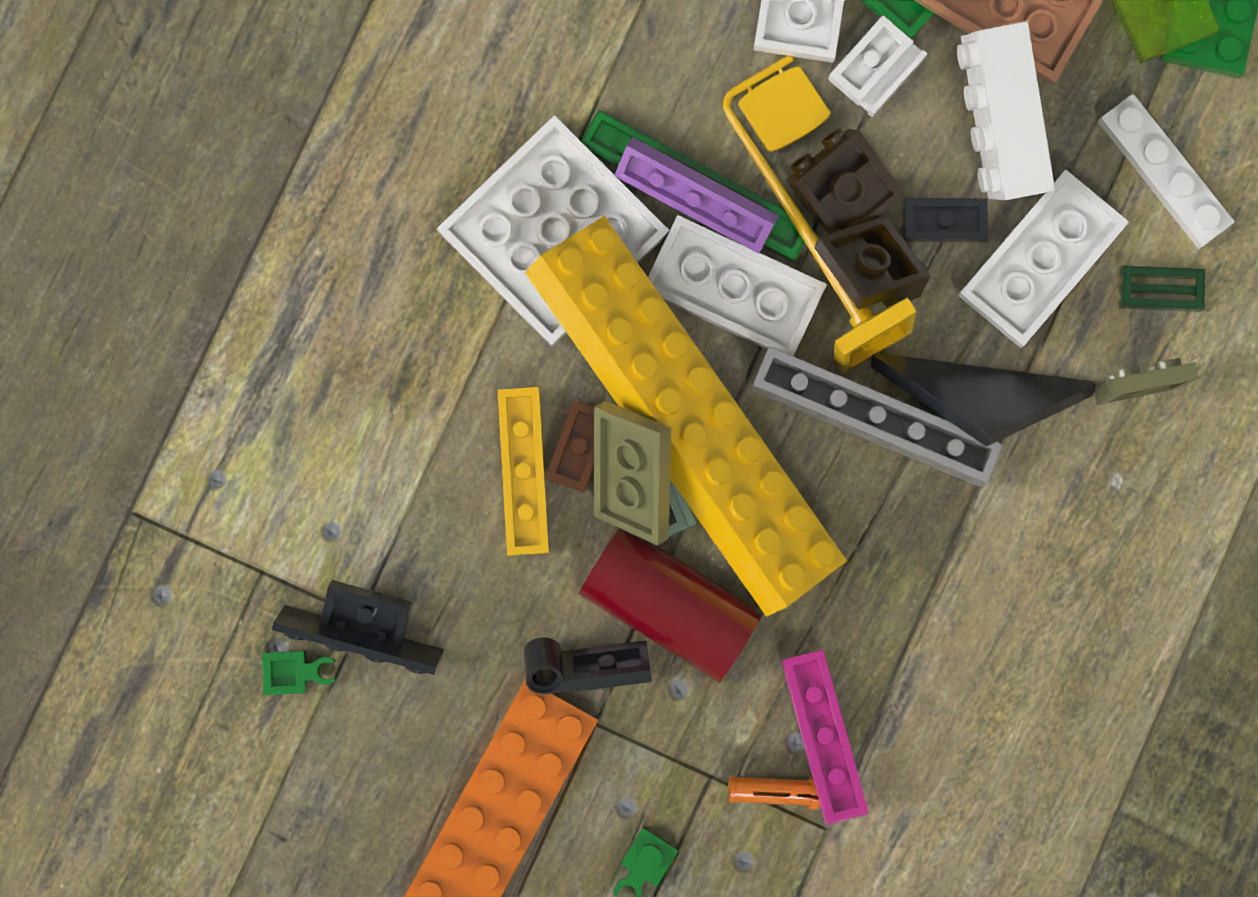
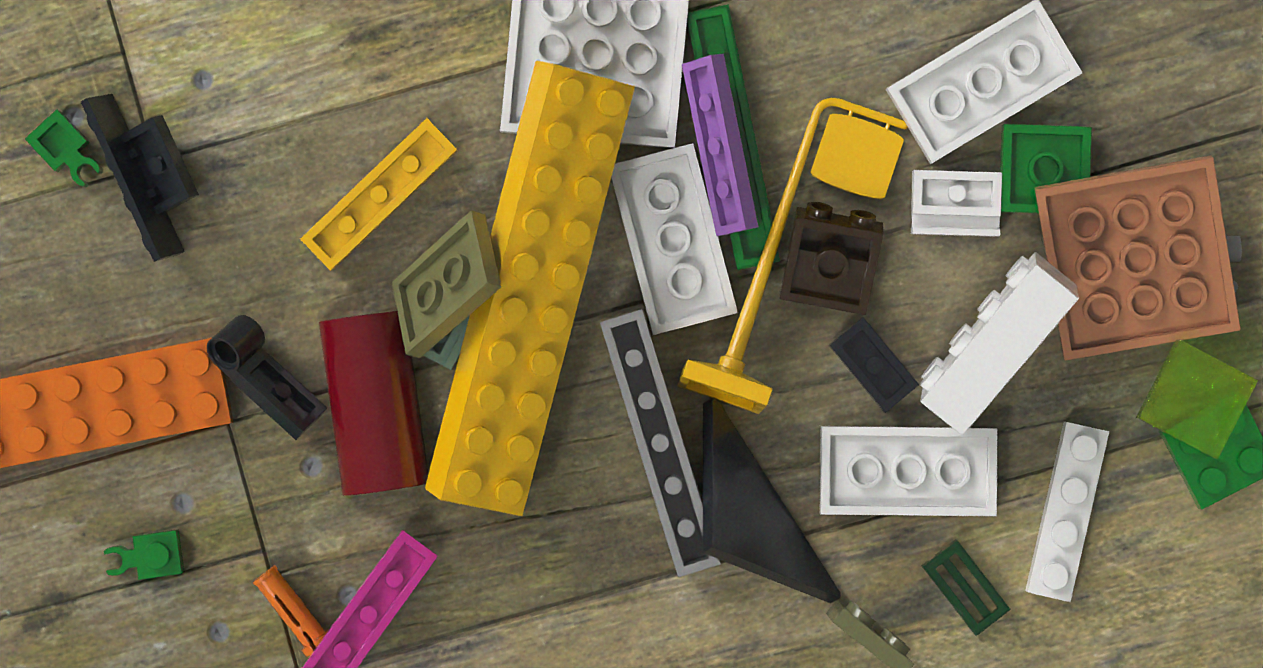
camera: 55 degrees right, 5 degrees up
(574, 453) = (425, 224): reddish brown plate -> none
(873, 263) = (782, 337): dark brown plate -> none

